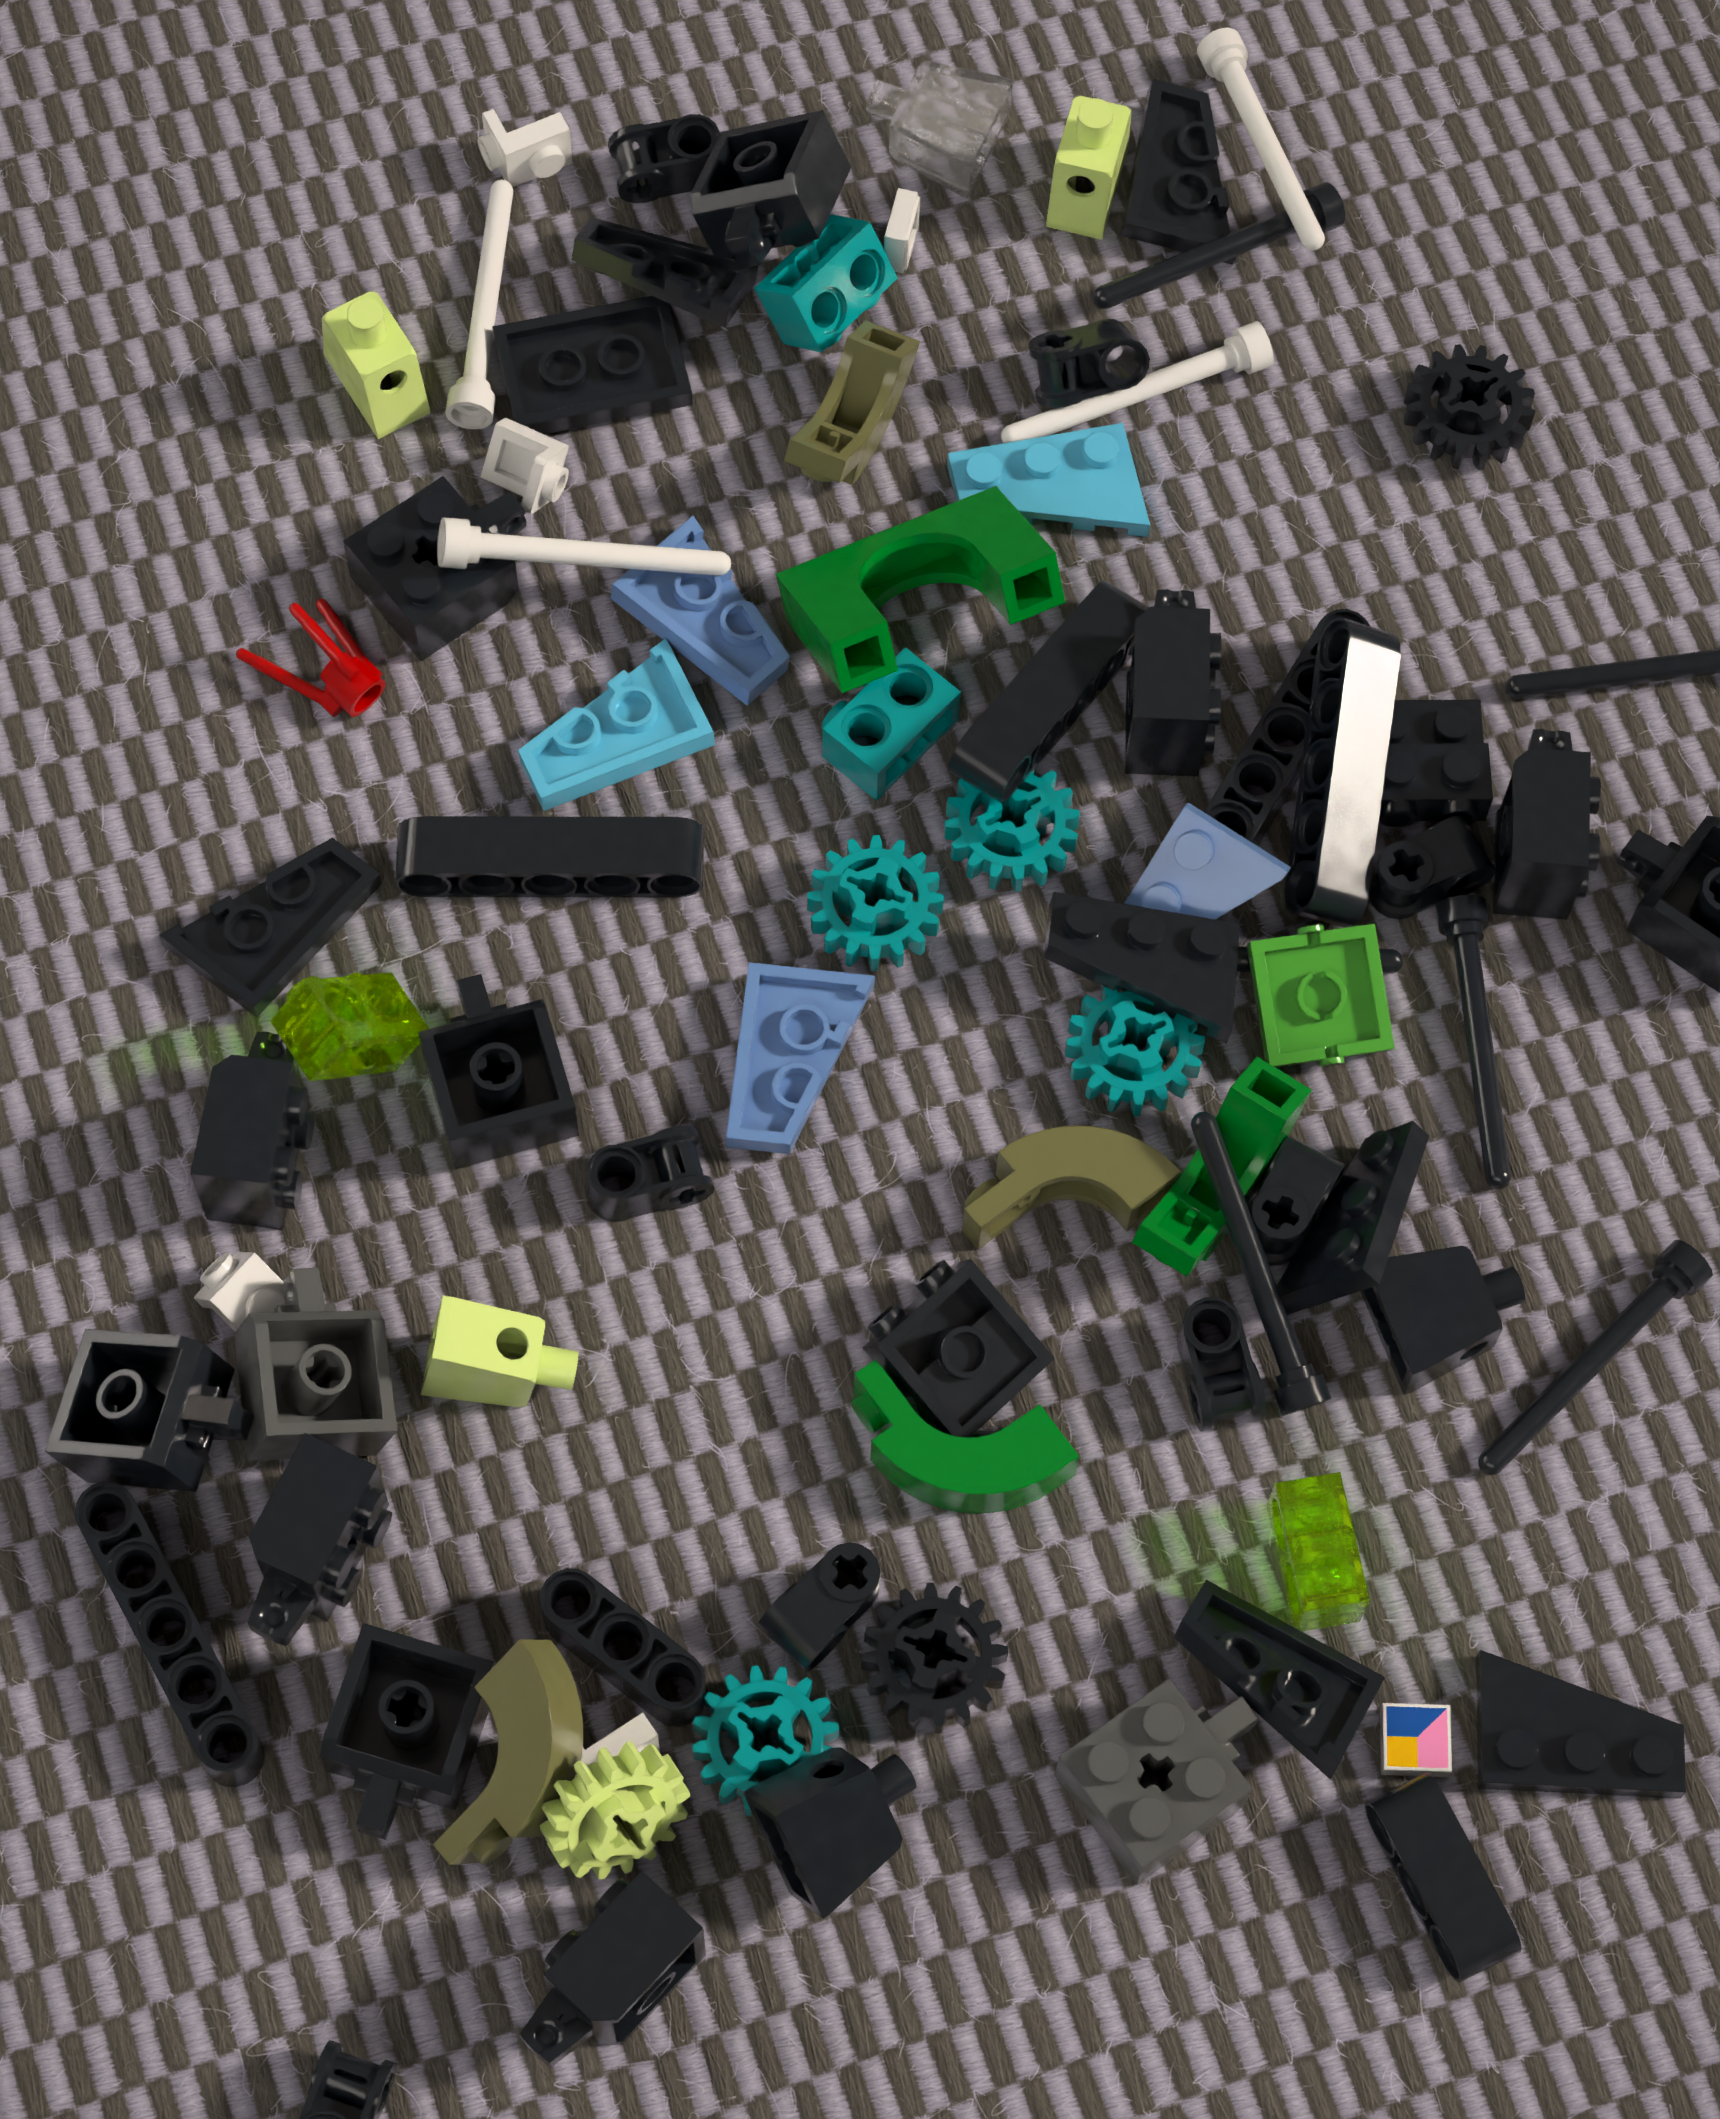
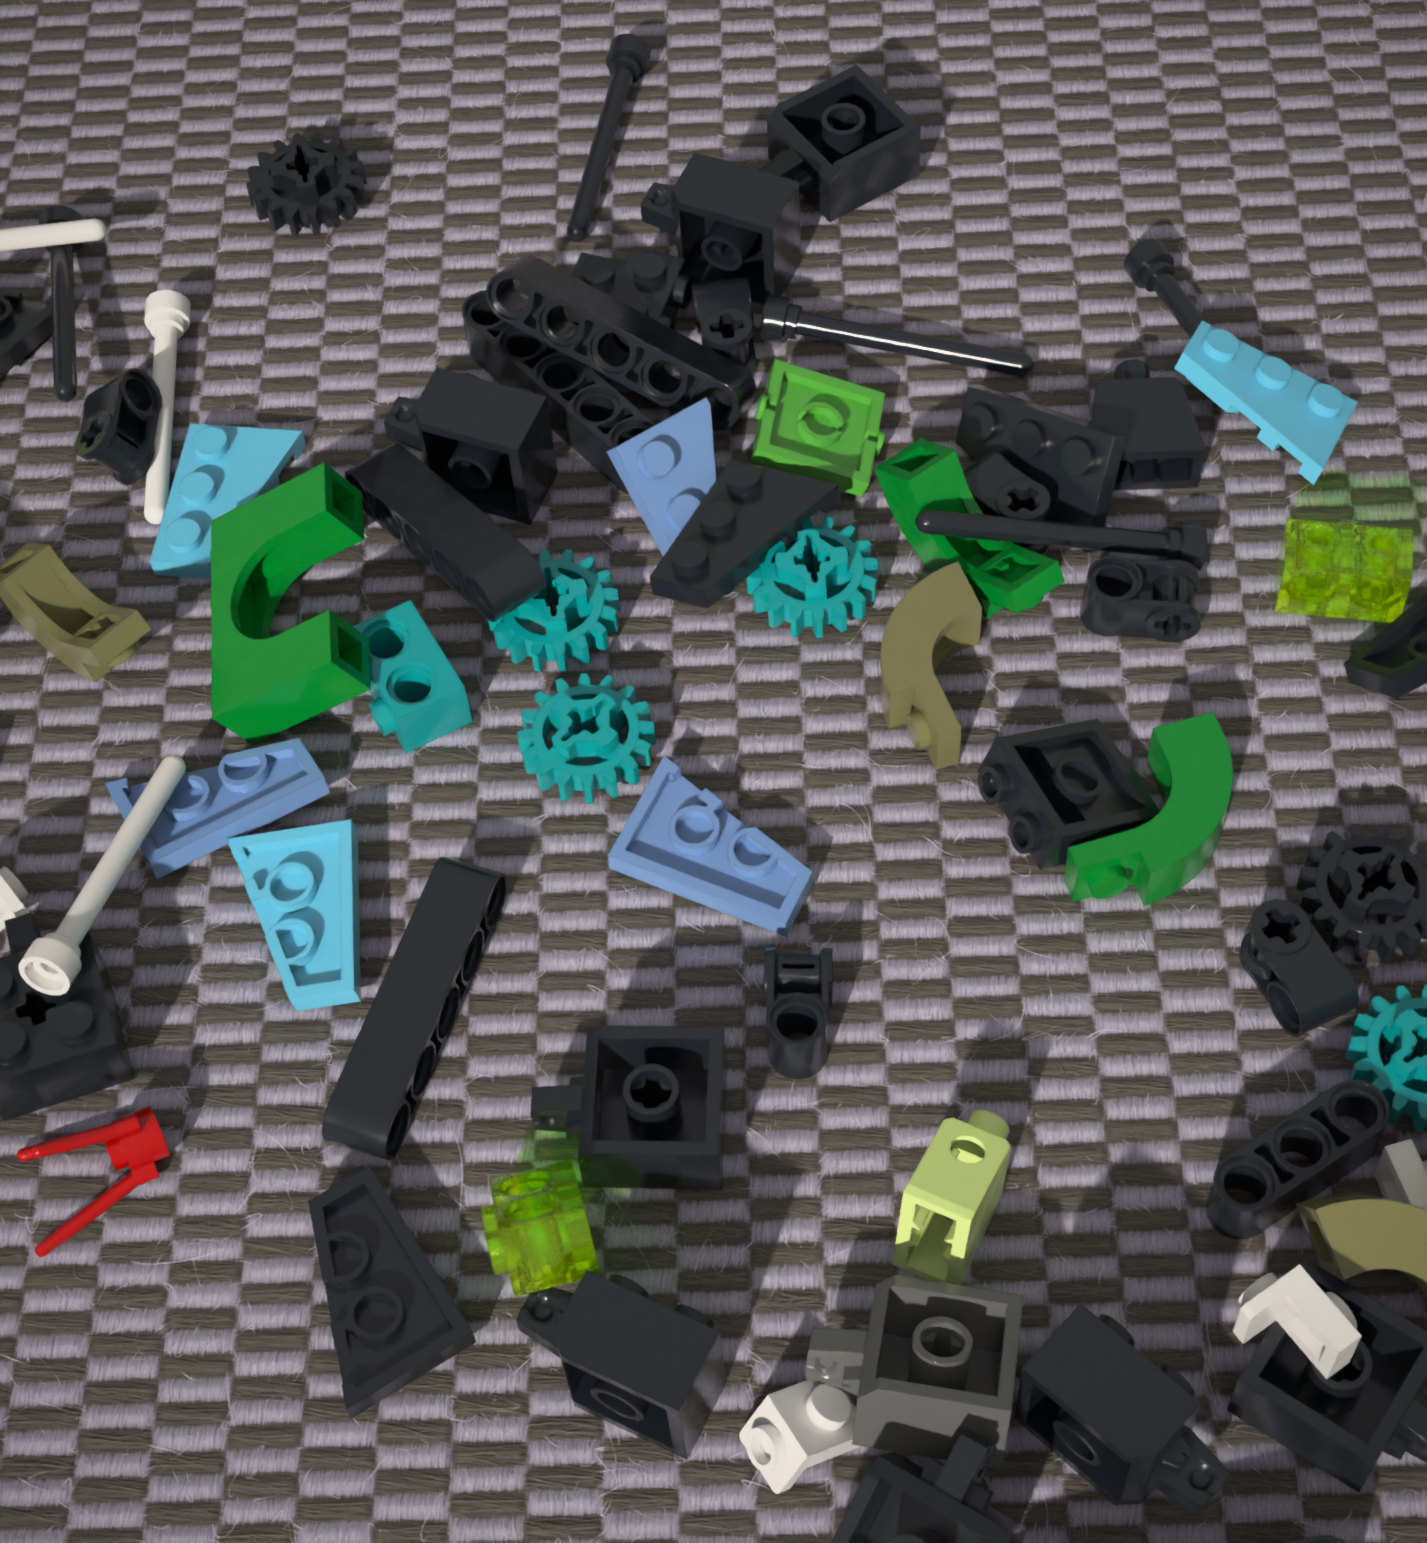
camera: 65 degrees left, 10 degrees down
(421, 1665) = (1313, 1319): none -> white bracket
(1526, 1436) = (1277, 398): none -> medium azure wing

